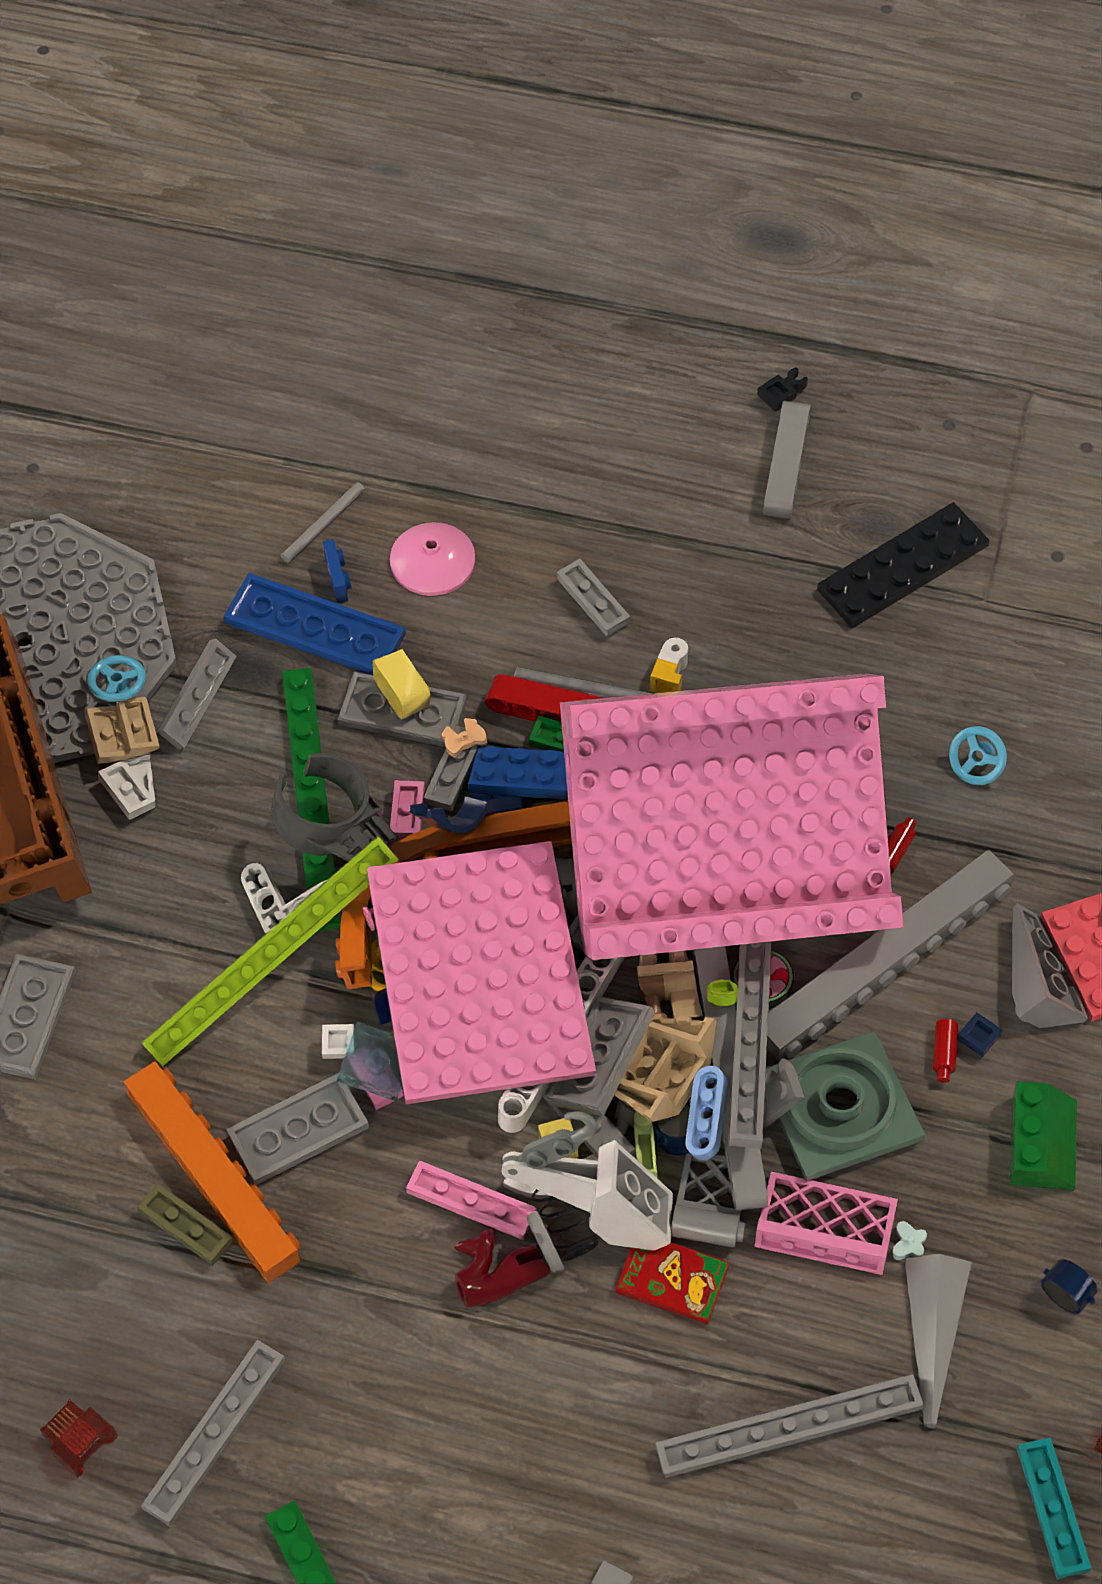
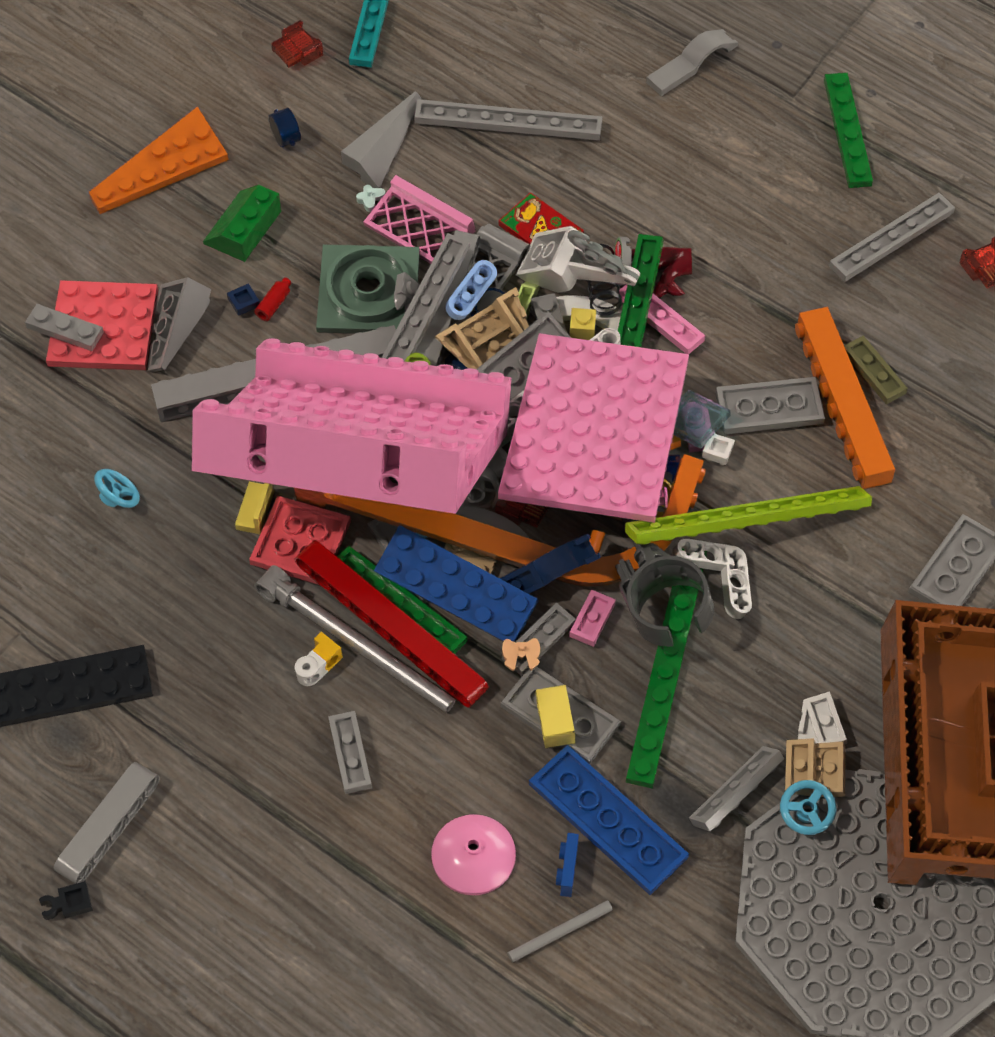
camera: 160 degrees left, 0 degrees up
(502, 1193) = (639, 297): none -> green plate

